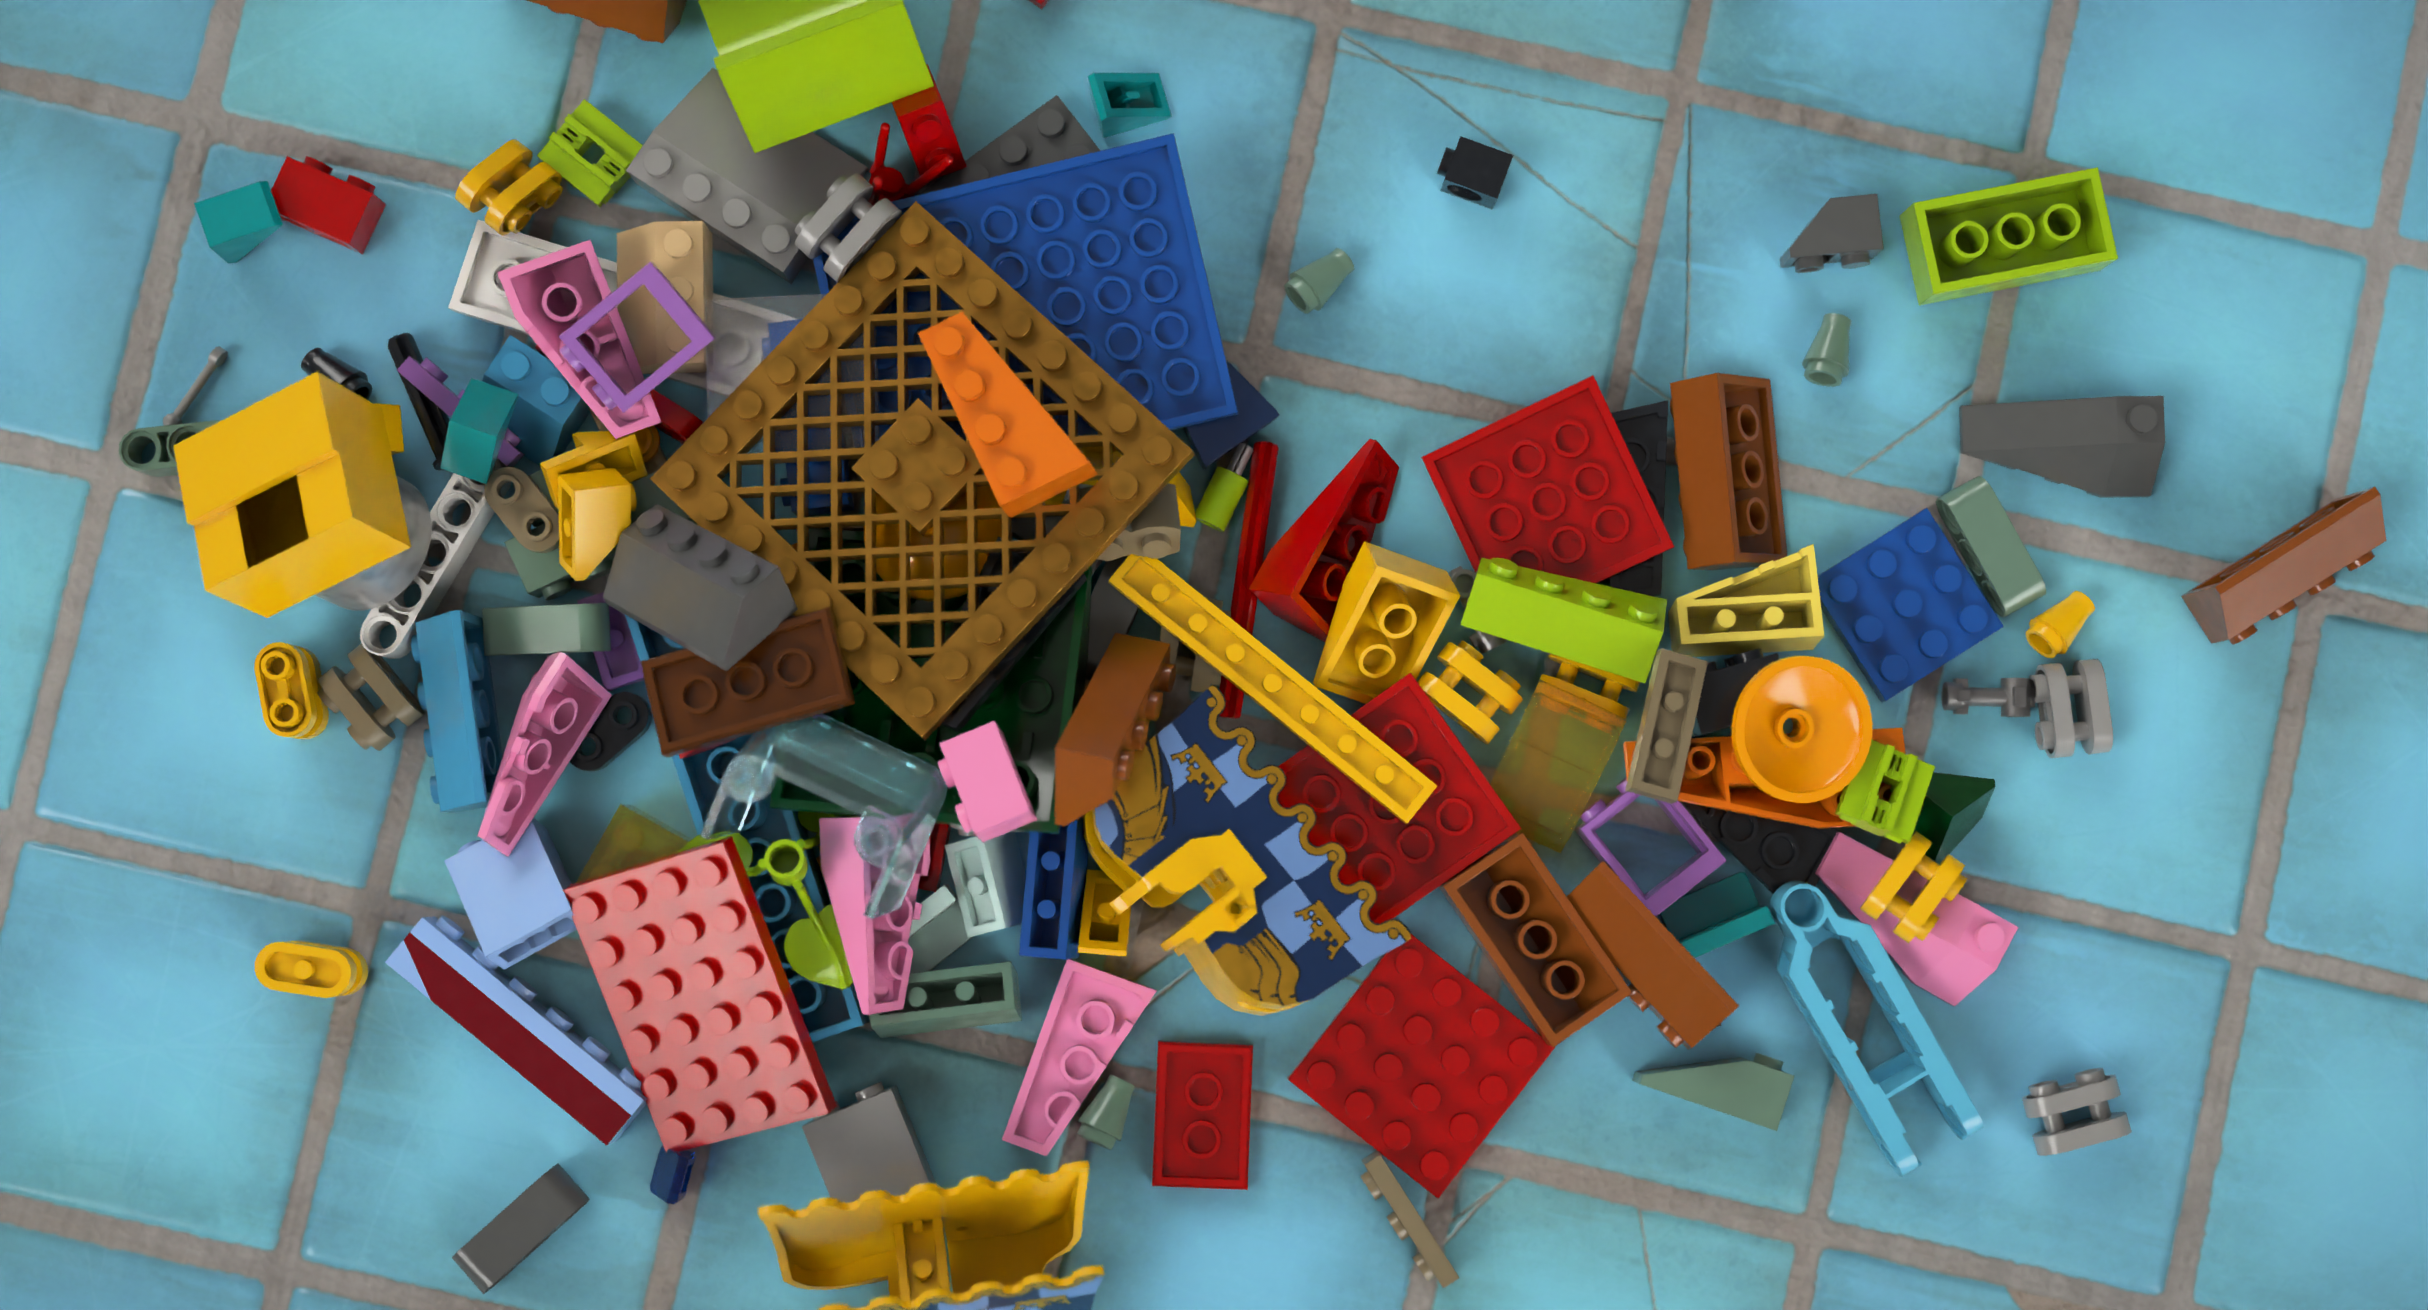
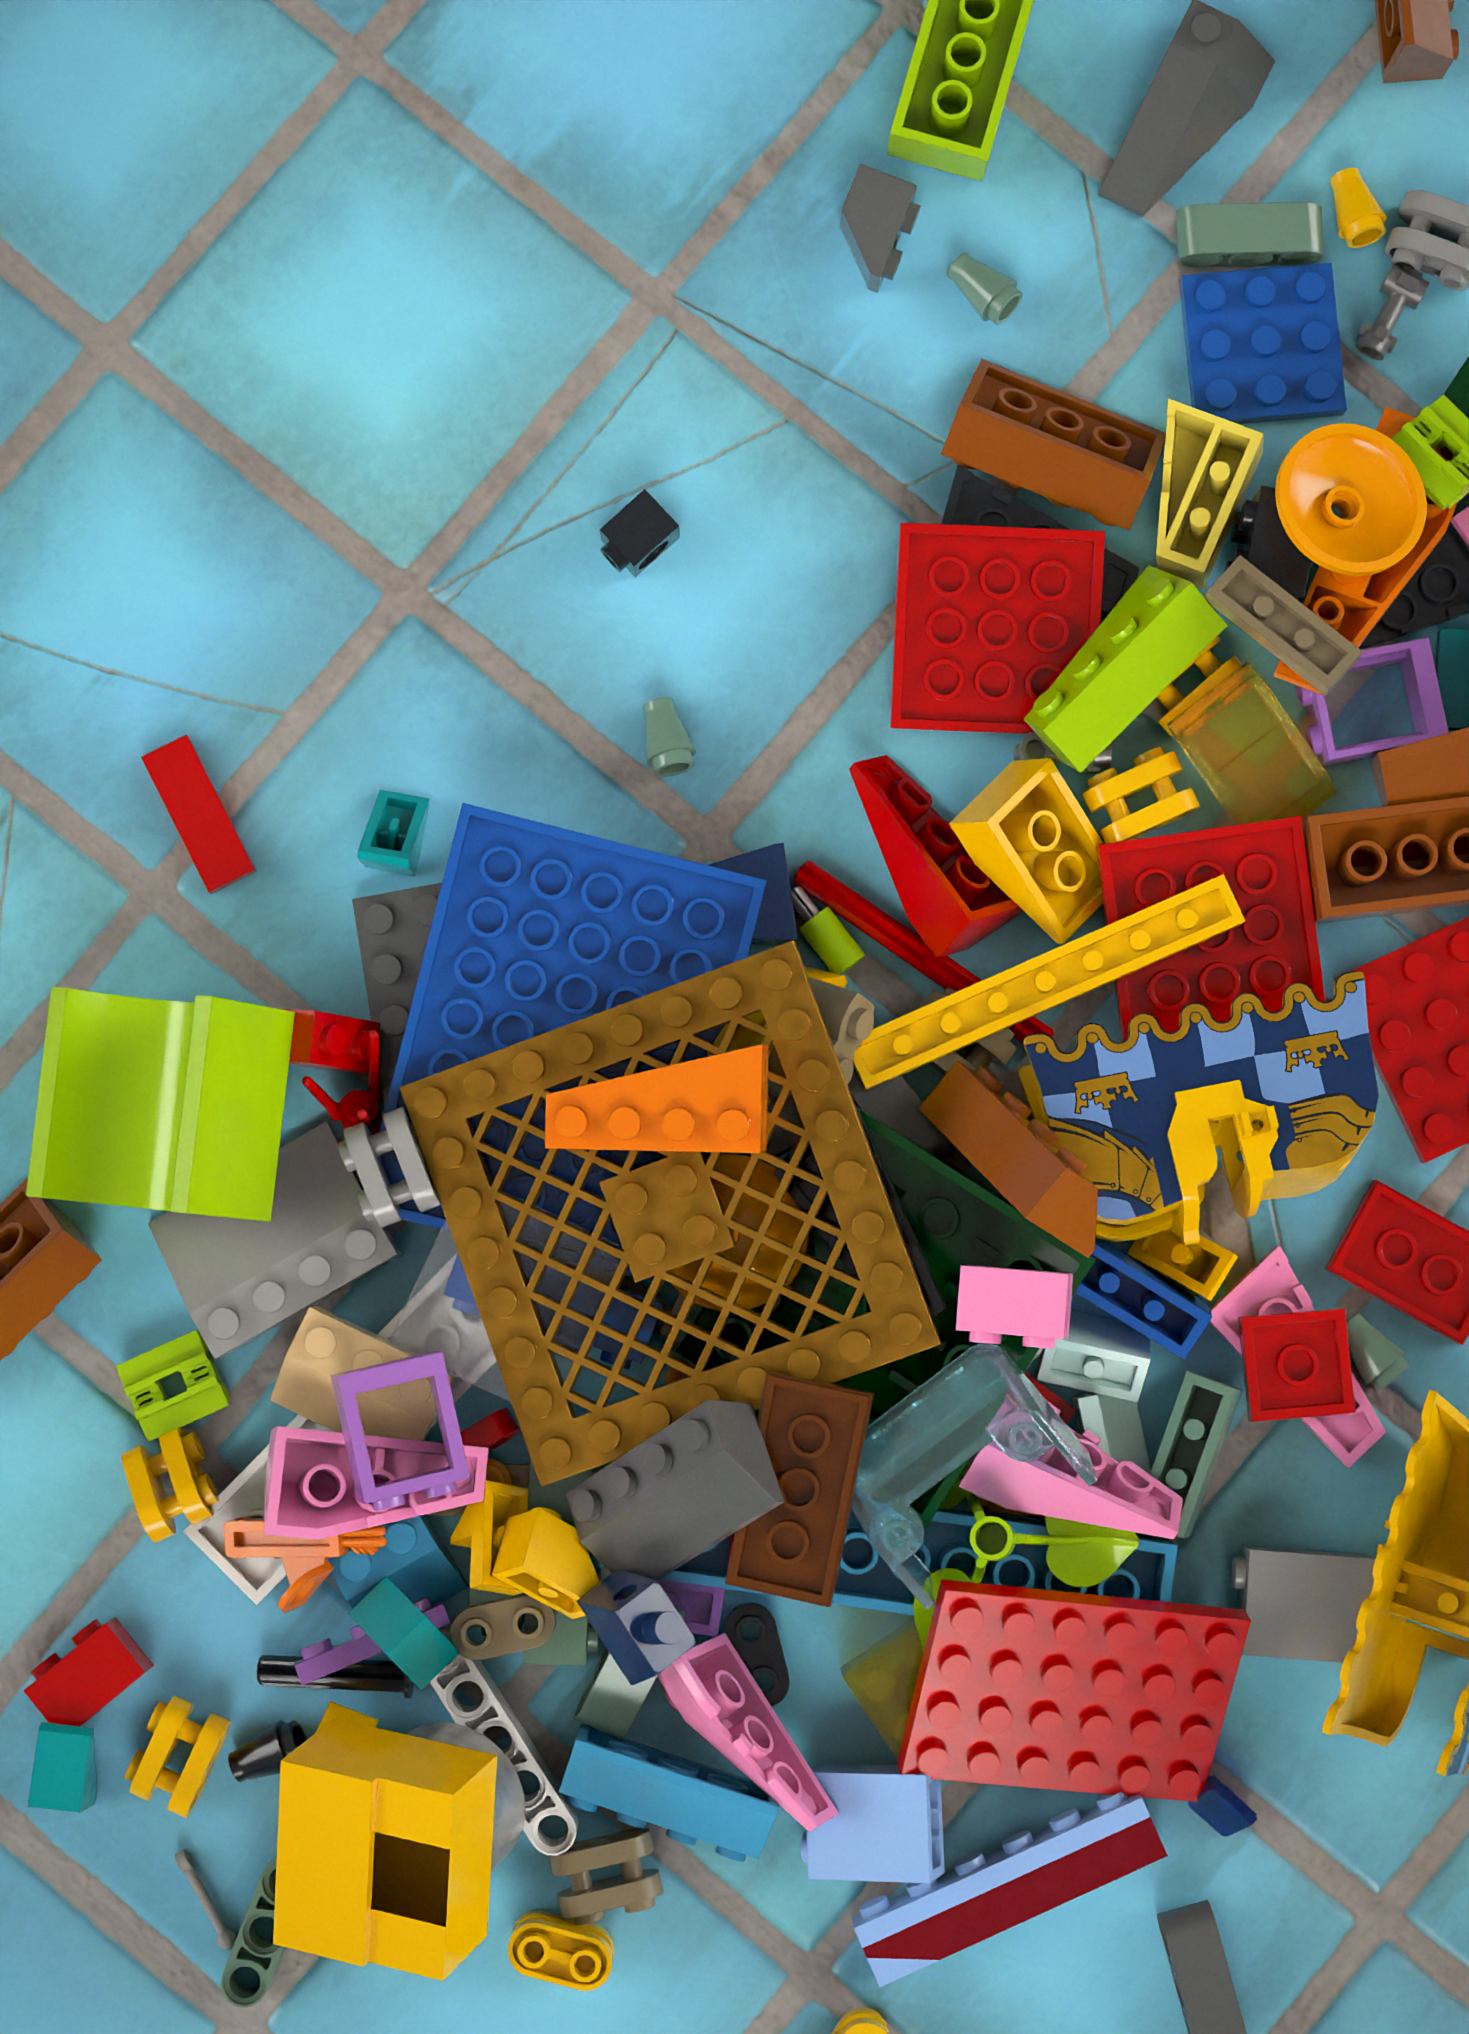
camera: 60 degrees left, 0 degrees up
(277, 290) = (149, 1768): none -> yellow brick
(498, 322) = (302, 1558): none -> orange piece
(572, 609) = (640, 1630): none -> dark blue torso
(1063, 1053) = (1296, 1365): none -> red tile

